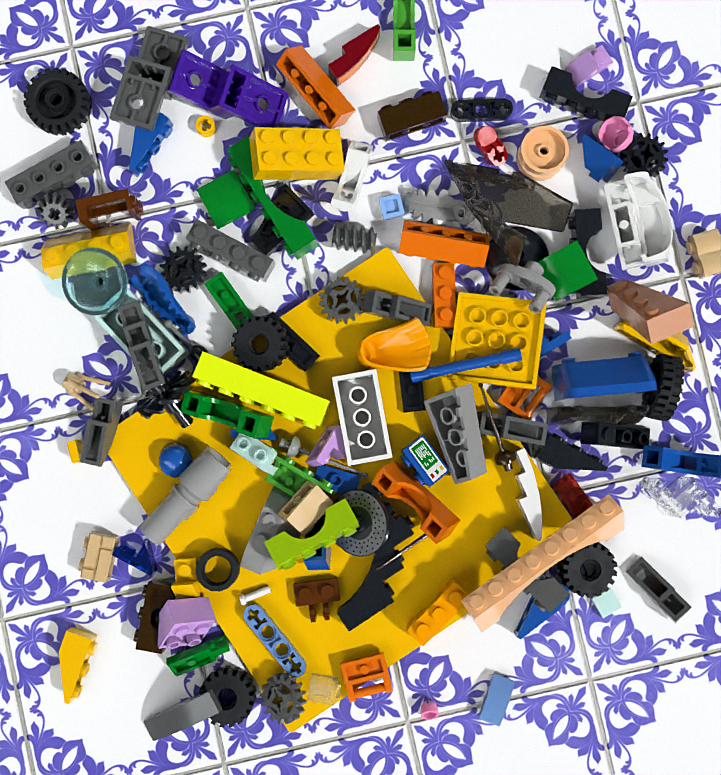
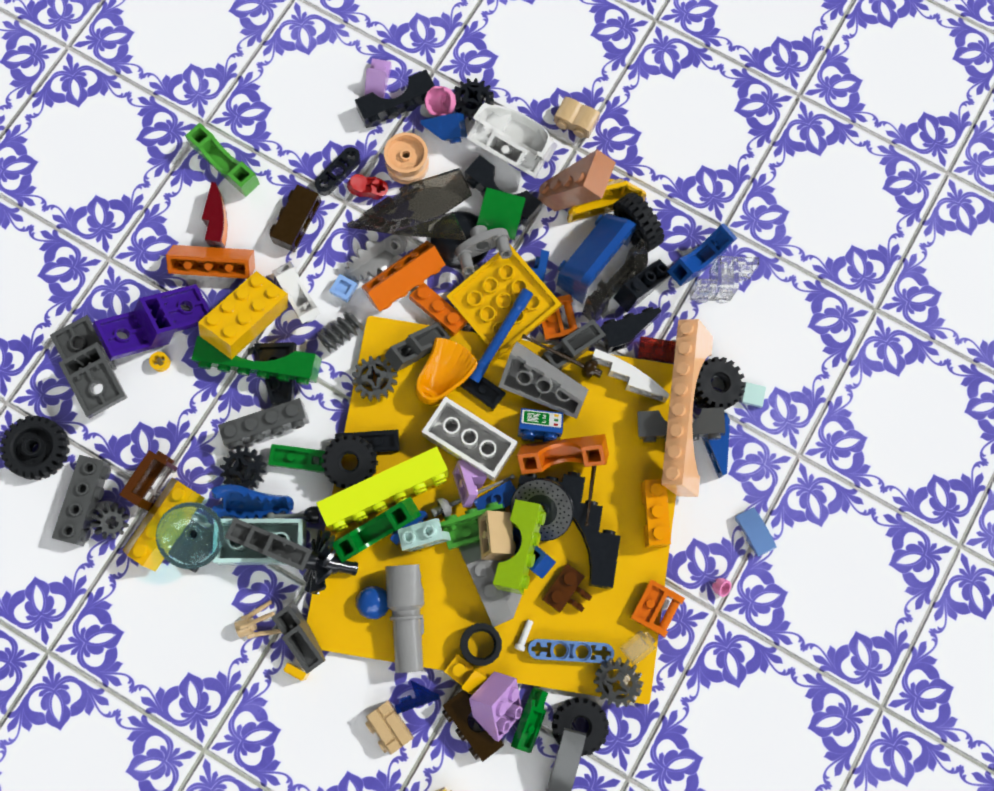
camera: 50 degrees left, 10 degrees down
(148, 144) = (130, 411): blue slope -> none
(225, 199) = (224, 394): green slope -> none
(658, 590) = (776, 352): dark grey slope -> none

